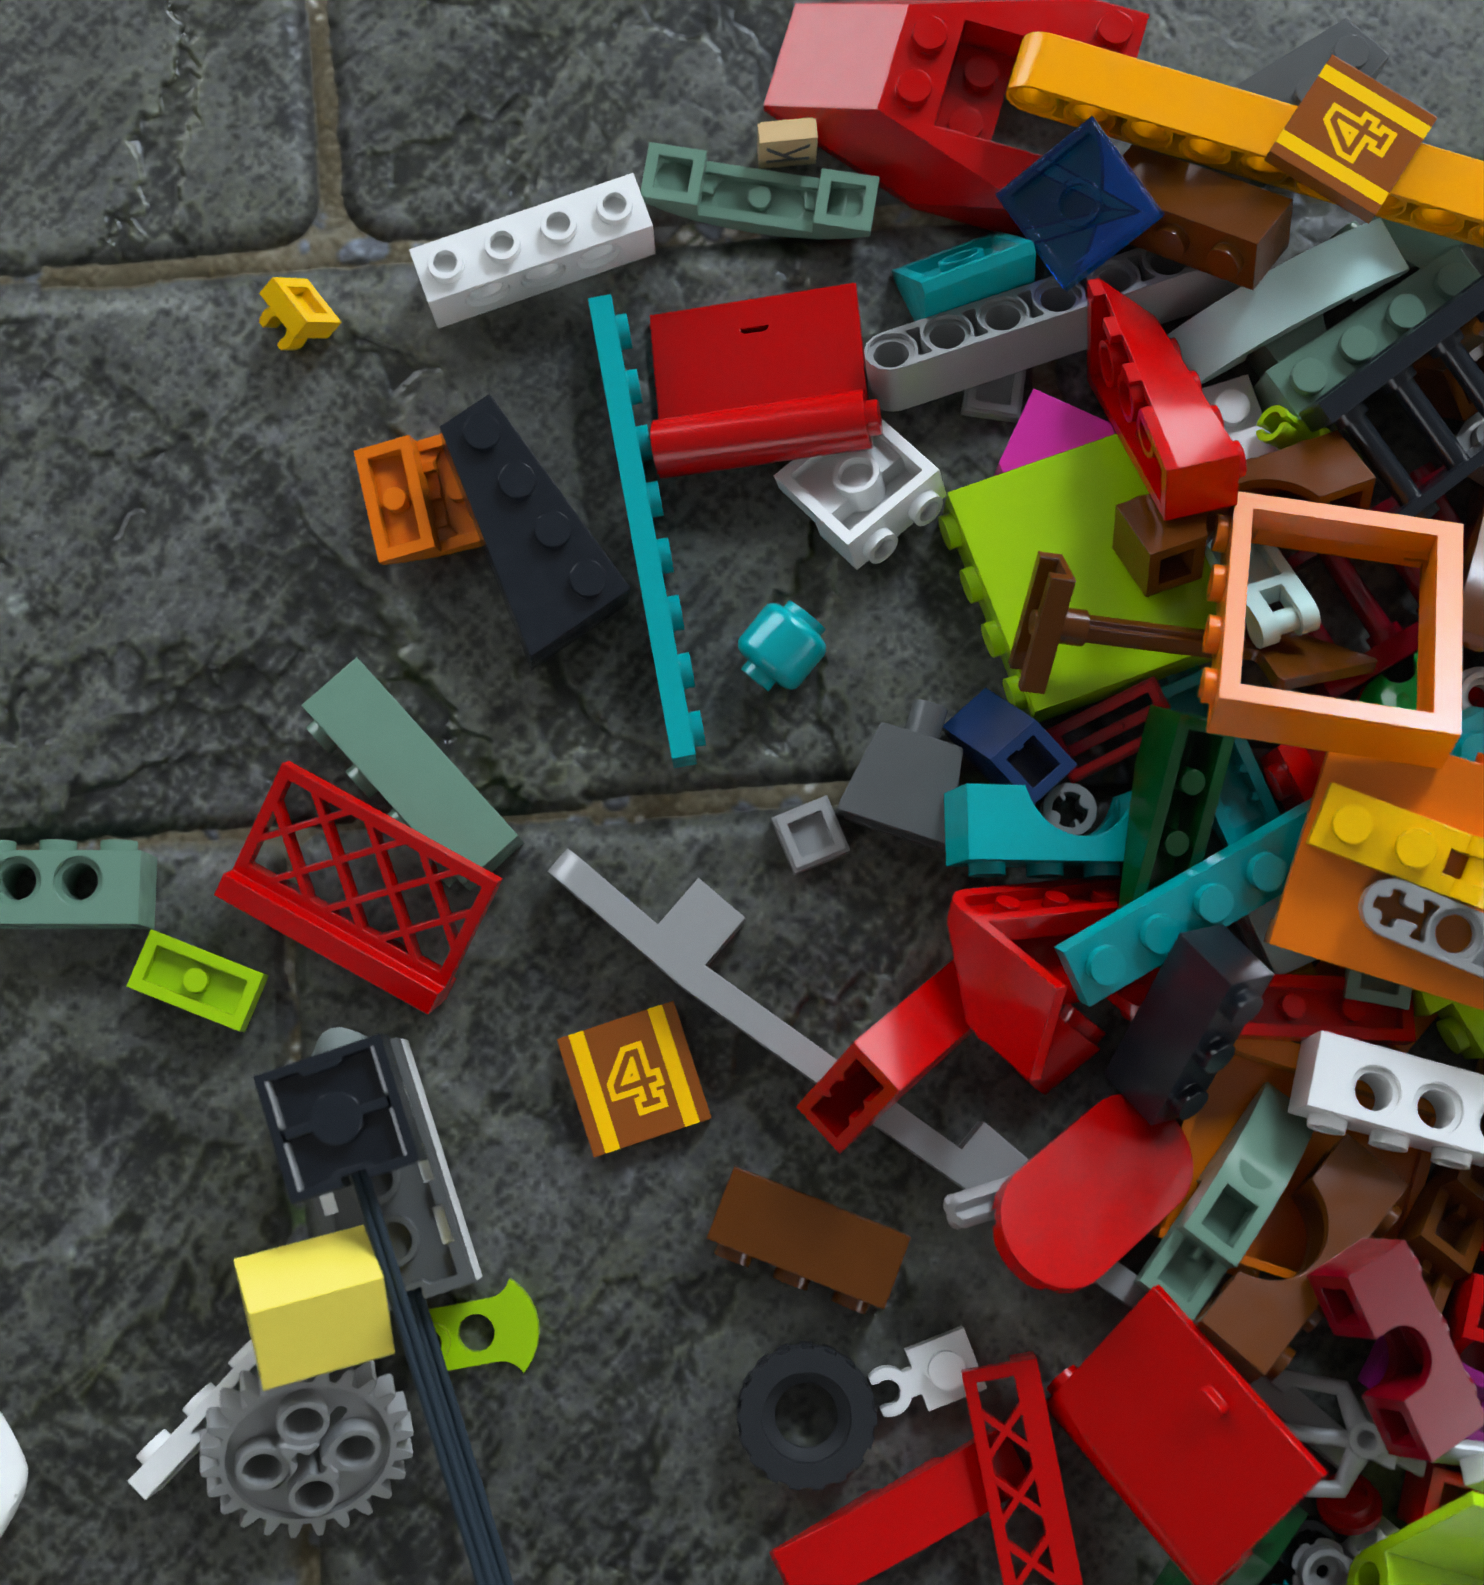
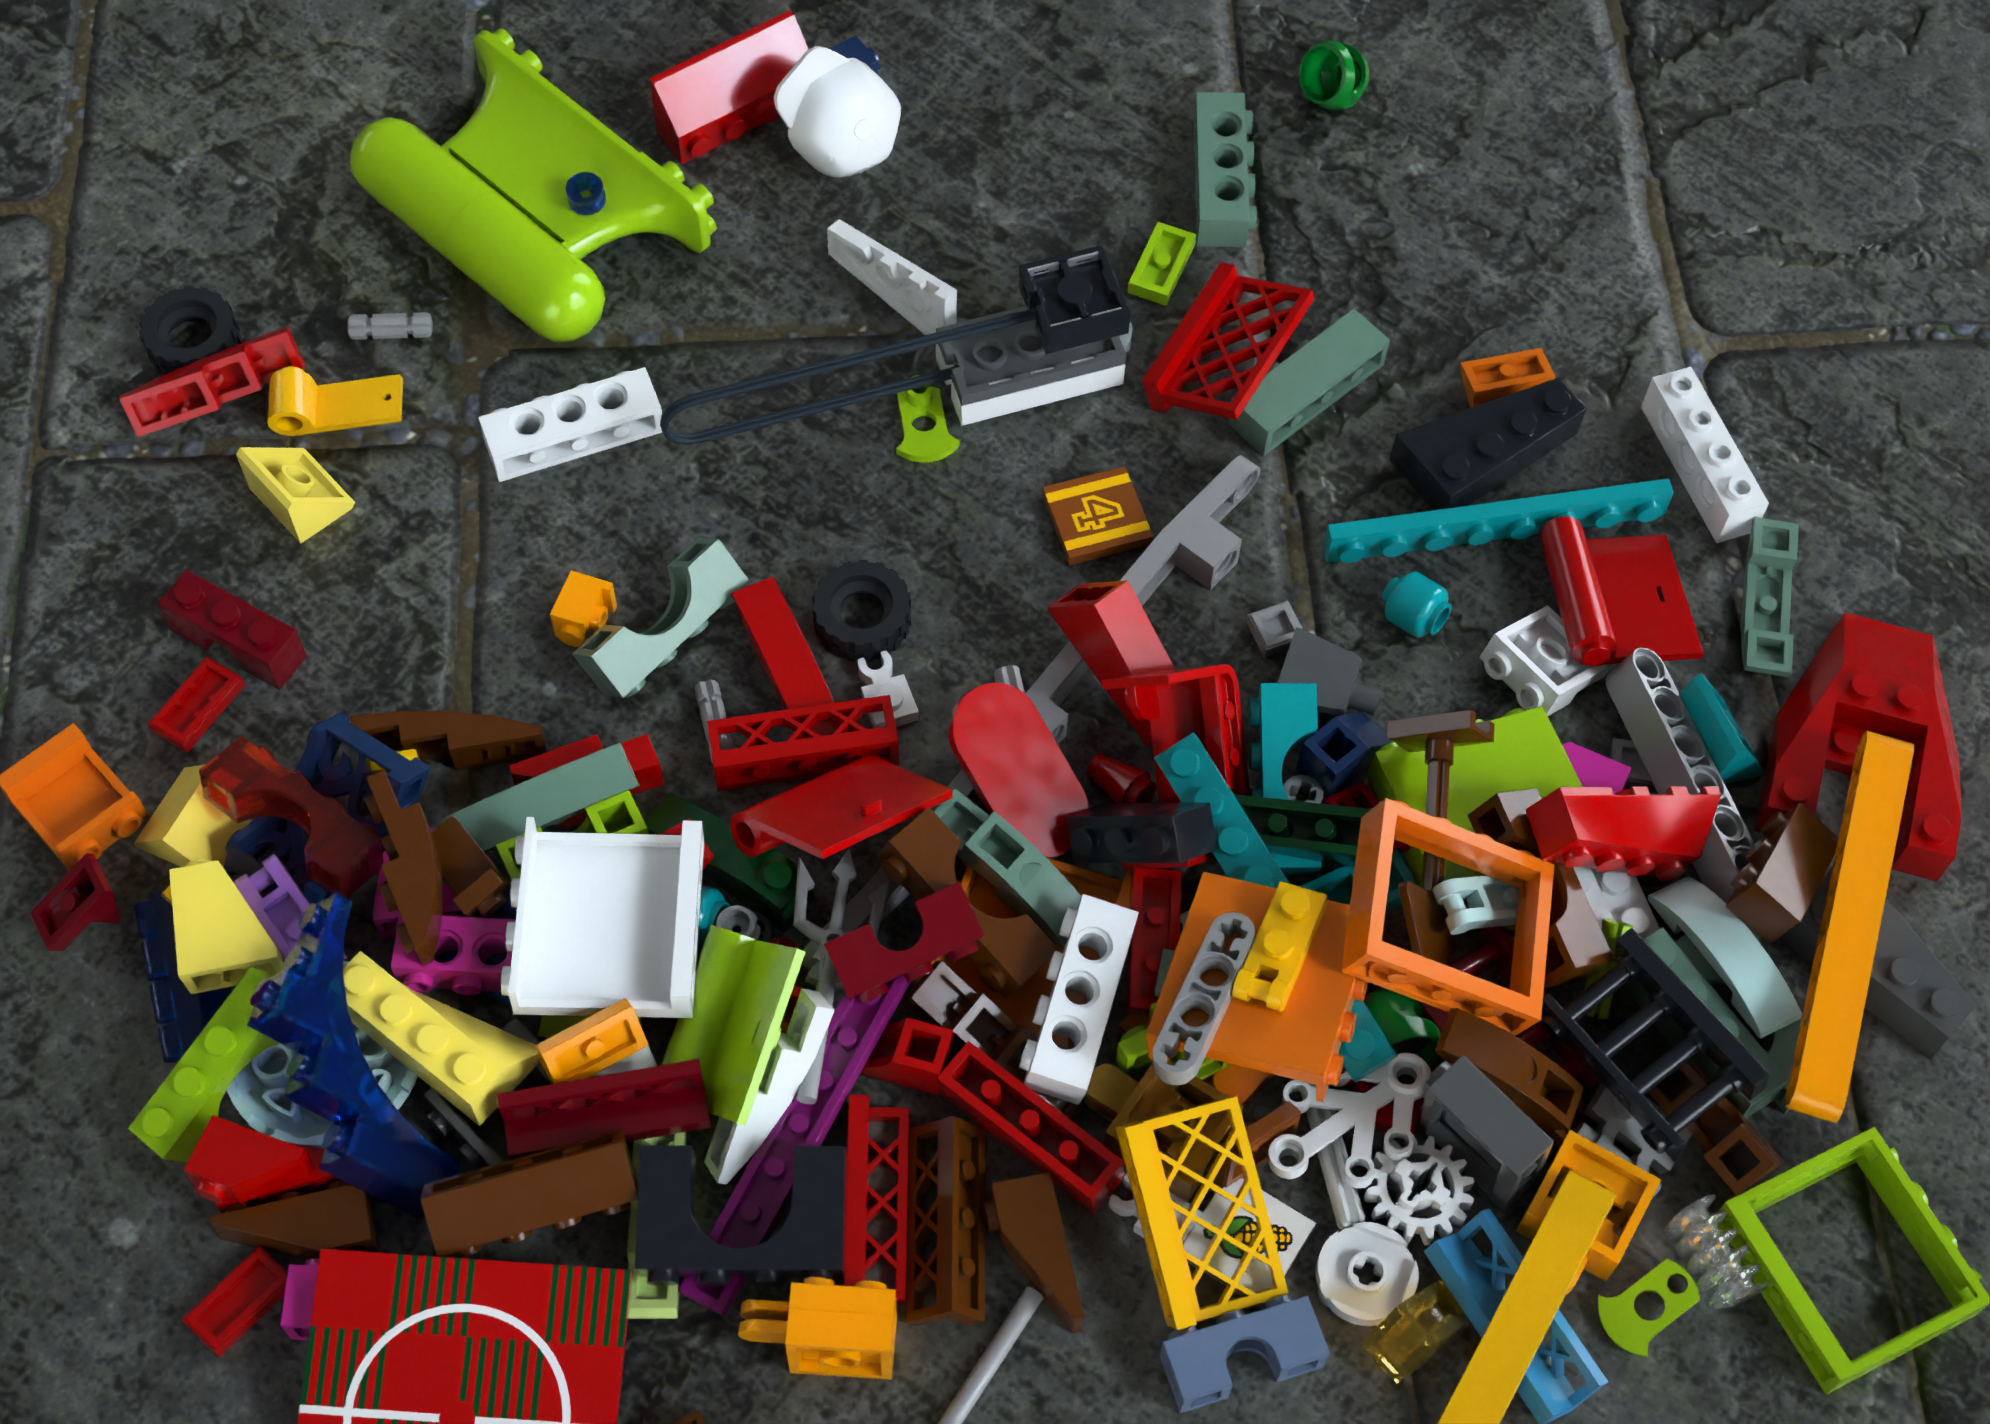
camera: 90 degrees right, 20 degrees down
(299, 309) = (1641, 315): yellow tile -> none
(306, 1448) = (876, 282): light grey gear -> none
(315, 1307) = (948, 287): light yellow slope -> none
(787, 143) = (1813, 619): tan tile -> none
(807, 1240) = (984, 612): reddish brown brick -> none
(1079, 204) = (1780, 785): clear blue tile -> none
(1350, 139) = (1855, 957): dark orange tile -> none

